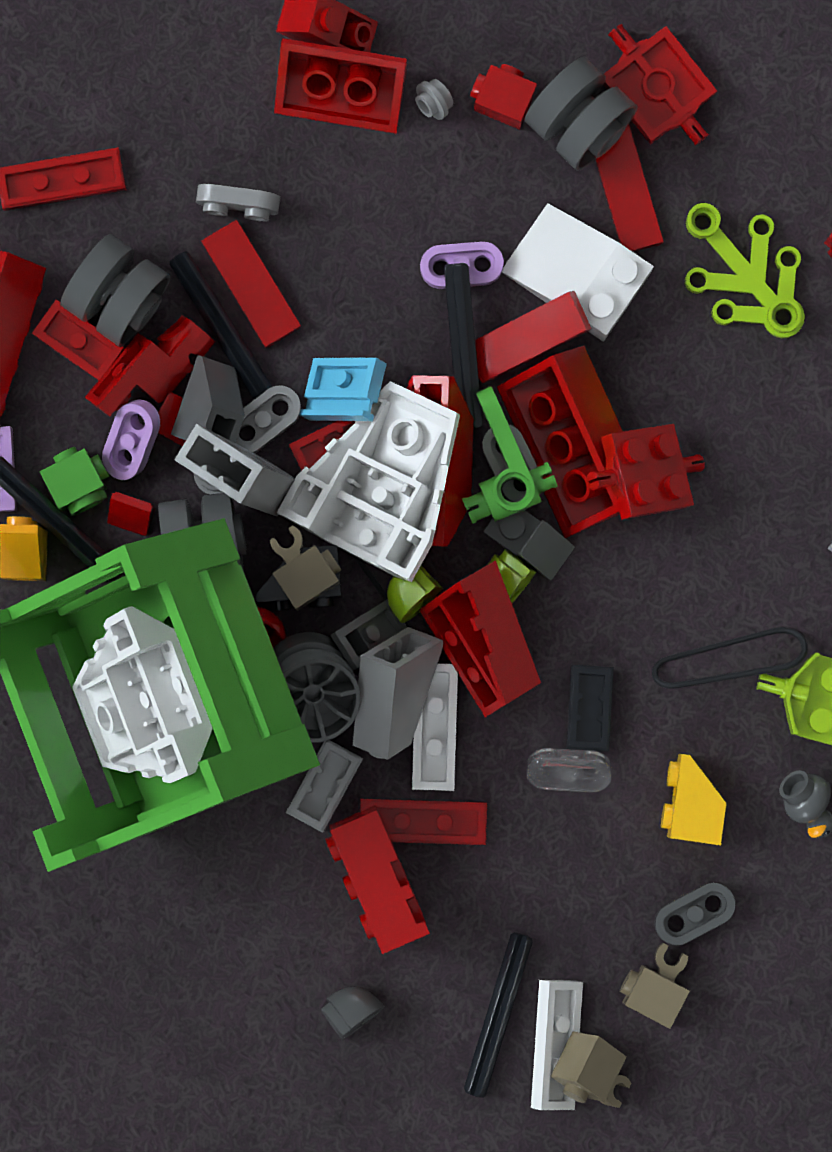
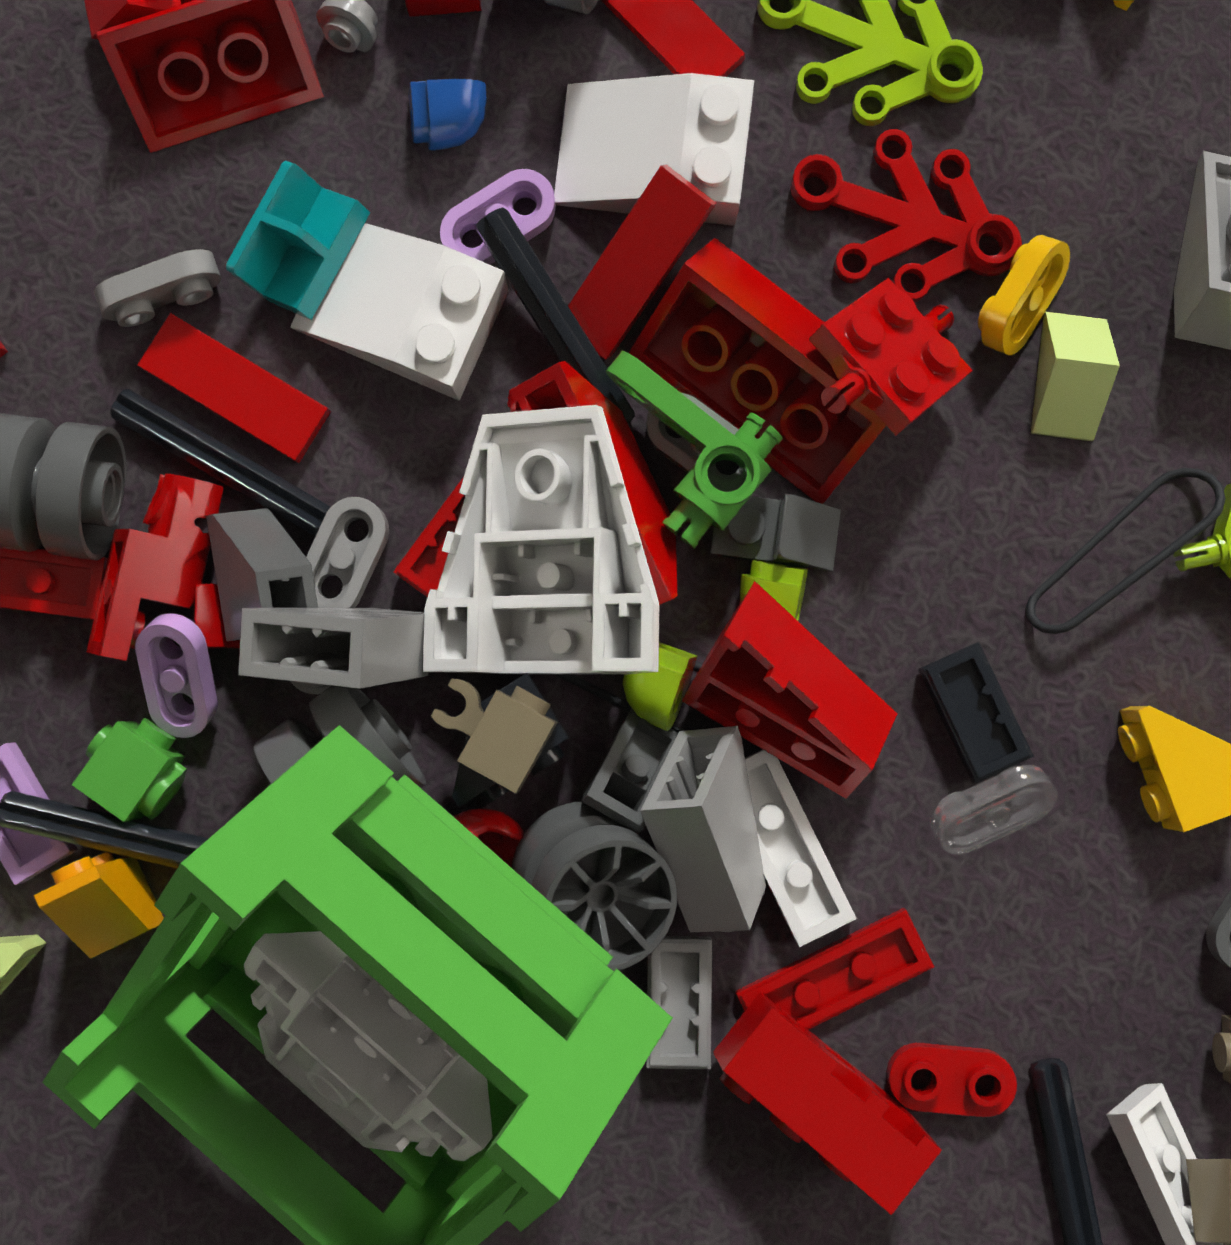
camera: 25 degrees left, 0 degrees up
(130, 513) = (228, 774): red slope -> none
(335, 218) = (296, 241): none -> teal panel
(343, 389) = (426, 459): medium azure plate -> none
(376, 286) = (410, 308): none -> white slope
(461, 915) = (952, 1081): none -> red plate
(463, 185) = (446, 111): none -> blue piece
(713, 395) = (915, 218): none -> red plant
(752, 476) = (1025, 294): none -> yellow plate
(756, 539) = (1073, 376): none -> yellowish green slope

